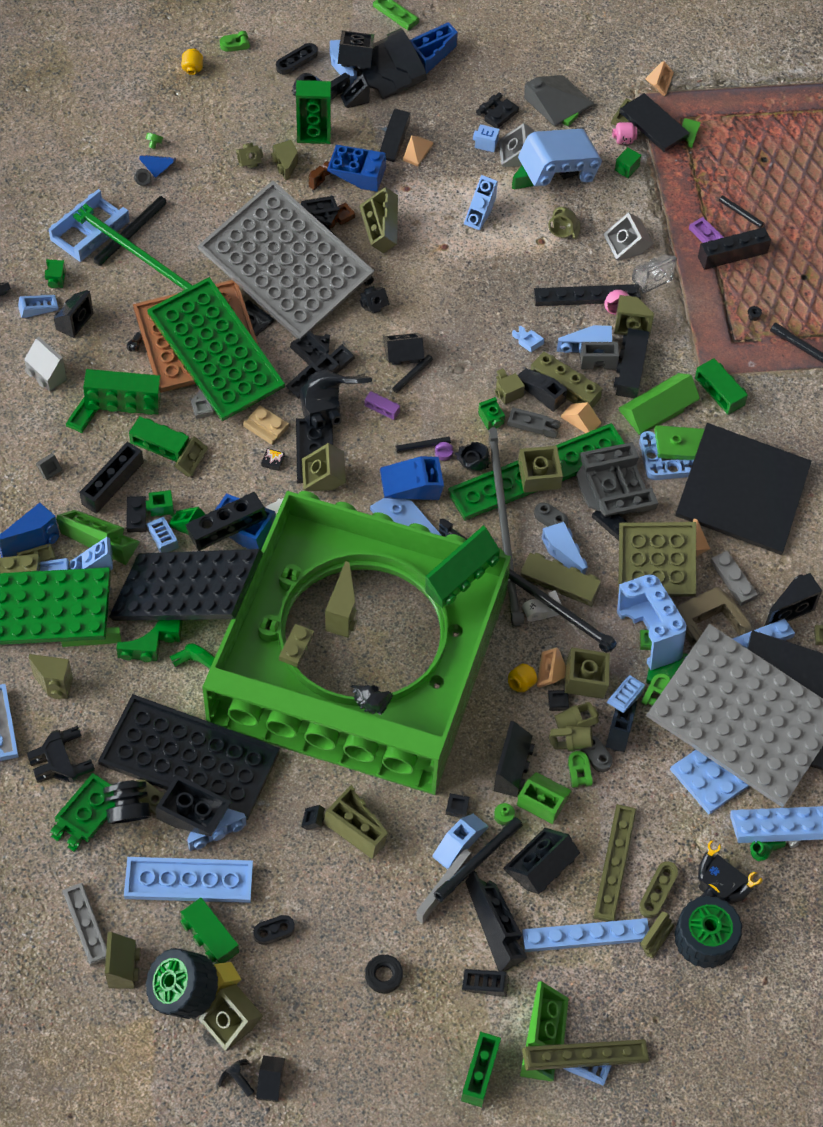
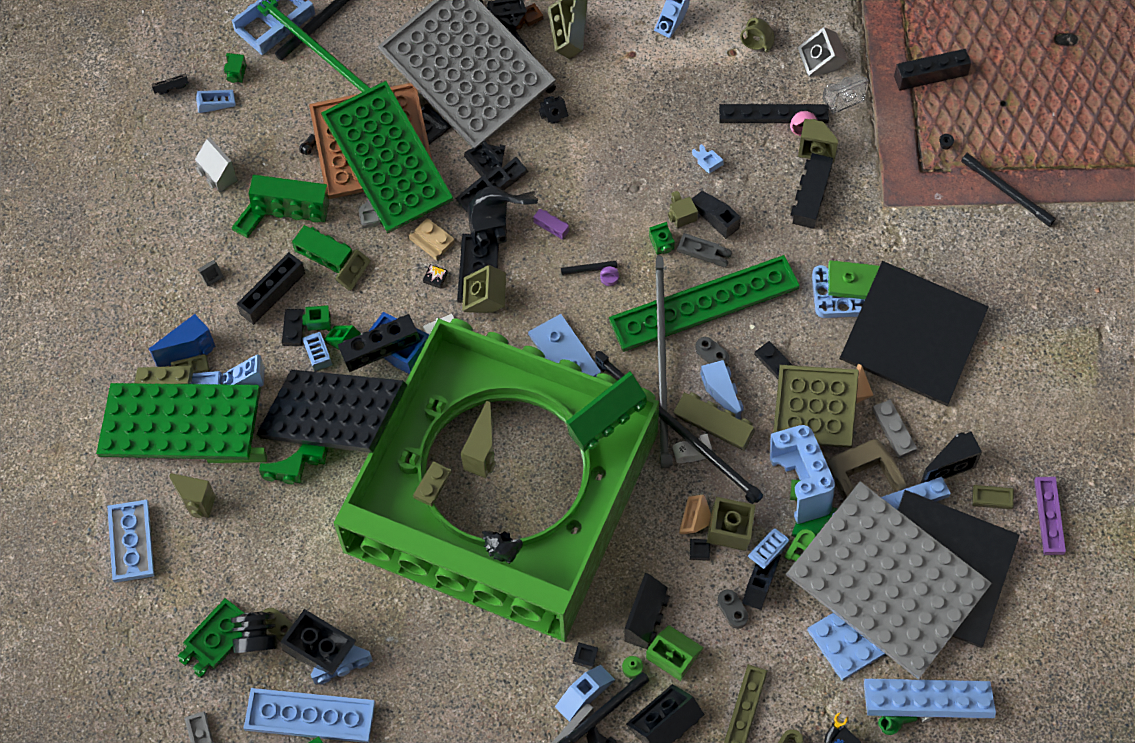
camera: 10 degrees right, 5 degrees up
(58, 763) = (191, 580): black connector -> none
(74, 314) = (249, 112): black slope -> none
(91, 530) = (248, 342): bright green slope -> none
(163, 742) = (303, 573): black plate -> none
(194, 653) = (336, 478): green arm -> none
(313, 817) = (439, 658): black plate -> none
(355, 823) = (480, 668): olive wedge -> none
(404, 348) = (579, 163): black slope -> none
(407, 378) = (587, 189): black bar -> none
(413, 479) = (573, 306): blue slope -> none
(474, 456) = (638, 284): black hair -> none
(522, 678) = (664, 524): yellow head -> none
(540, 469) = (704, 302): olive brick -> none
(573, 717) = (709, 572): olive piece -> none
(576, 738) = (711, 592): olive piece -> none
(578, 386) = (753, 214): olive brick -> none
(578, 763) = (713, 618): bright green plate -> none
(581, 416) = (754, 246): light nougat slope -> none
(594, 333) = (768, 164): light blue slope -> none
(607, 359) = (787, 185): dark grey brick -> none
(613, 482) = (779, 319): dark grey slope -> none
(661, 403) = (837, 235): bright green slope -> none
(704, 230) = (903, 49): medium lavender plate -> none
(721, 386) = (903, 220): green brick -> none
(741, 211) = (945, 29): black bar -> none

